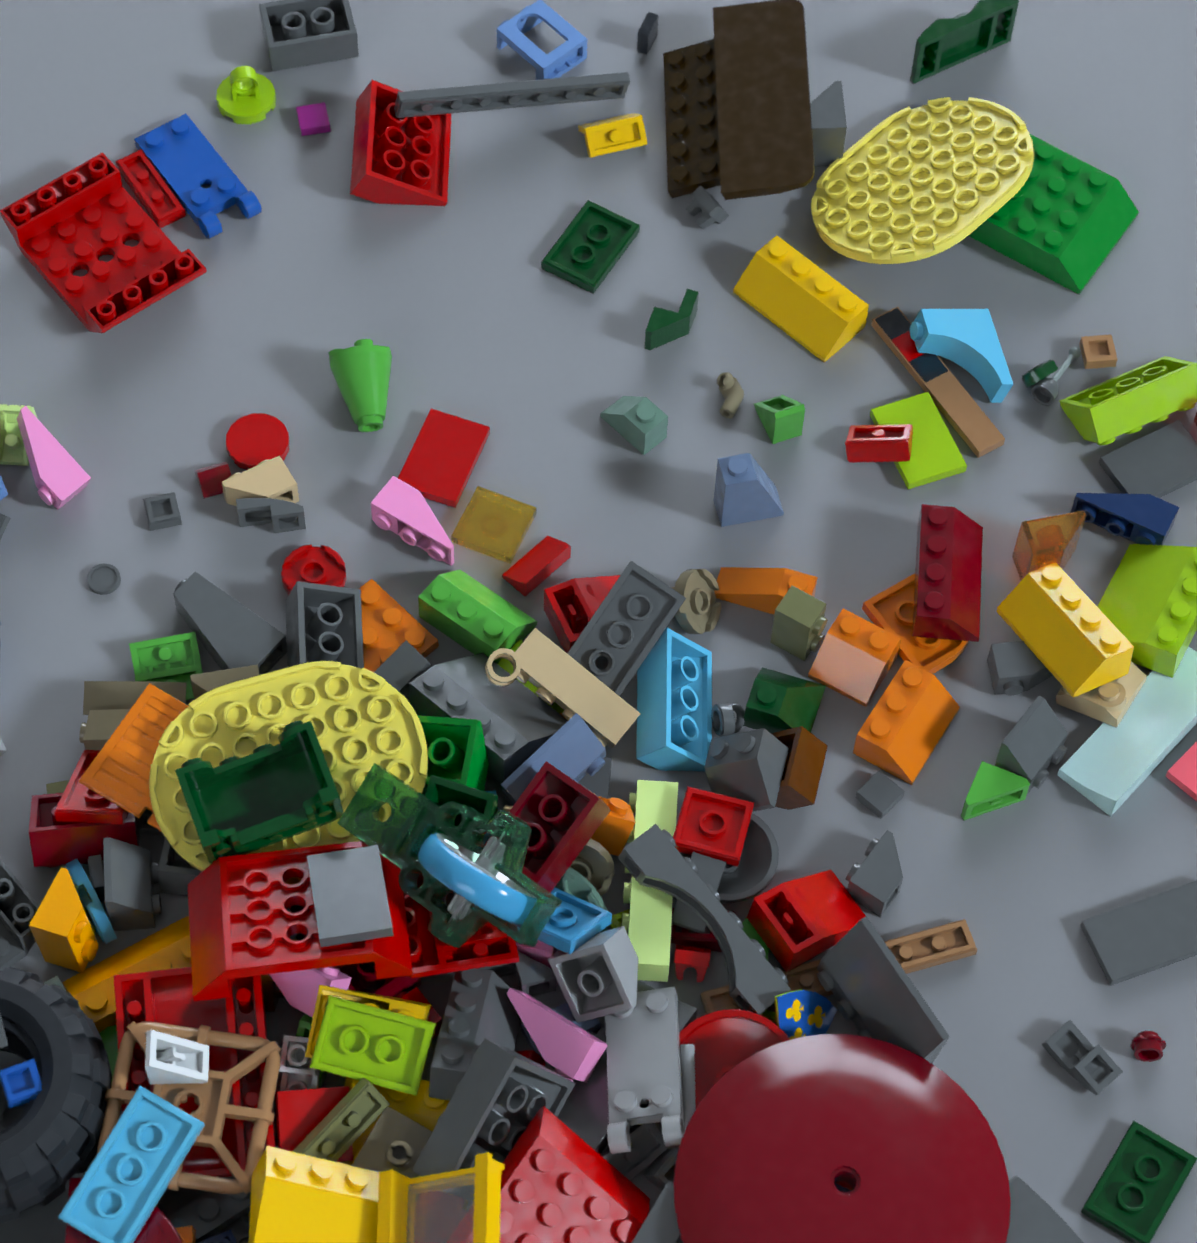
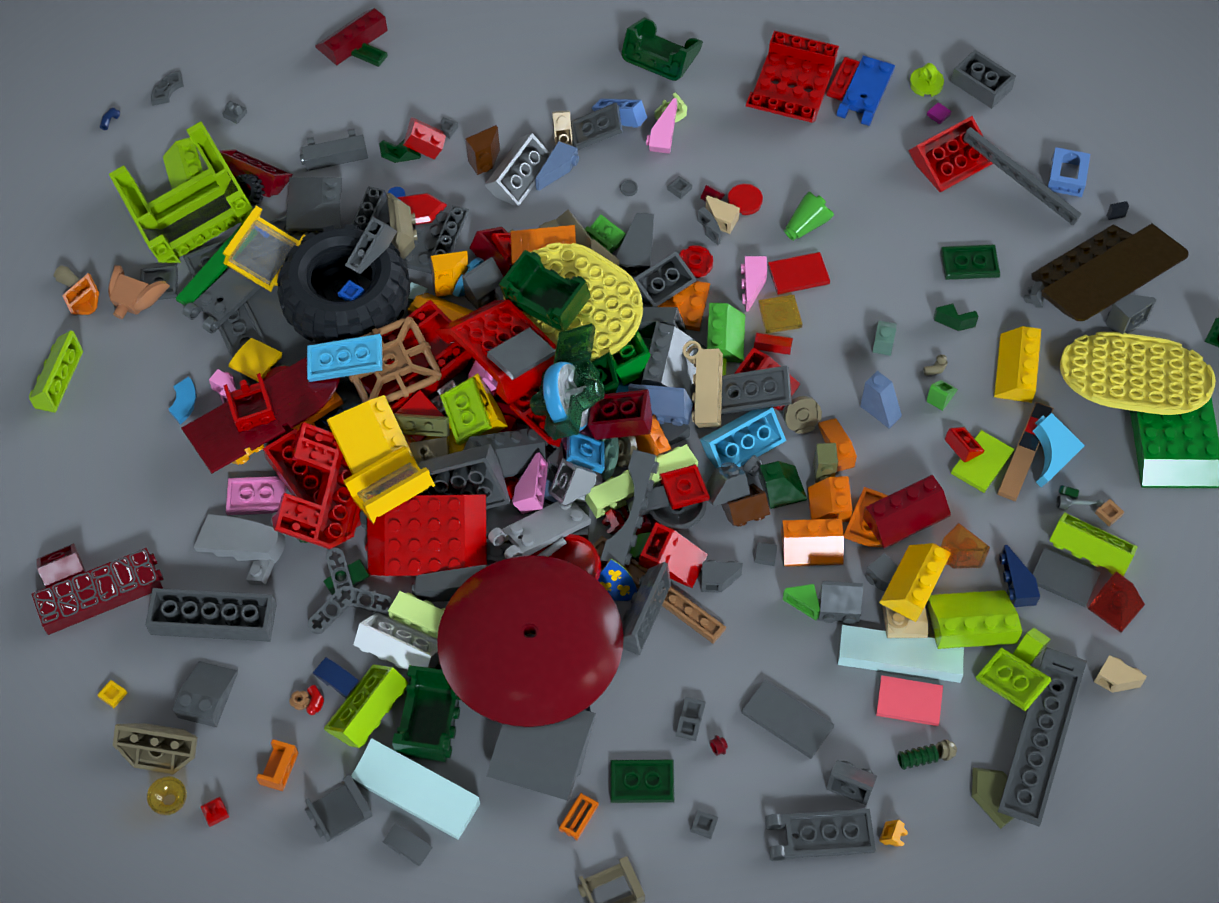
camera: 60 degrees right, 0 degrees up
(175, 1059) = (400, 338): white slope -> none
(614, 134) = (1043, 232): yellow panel -> none

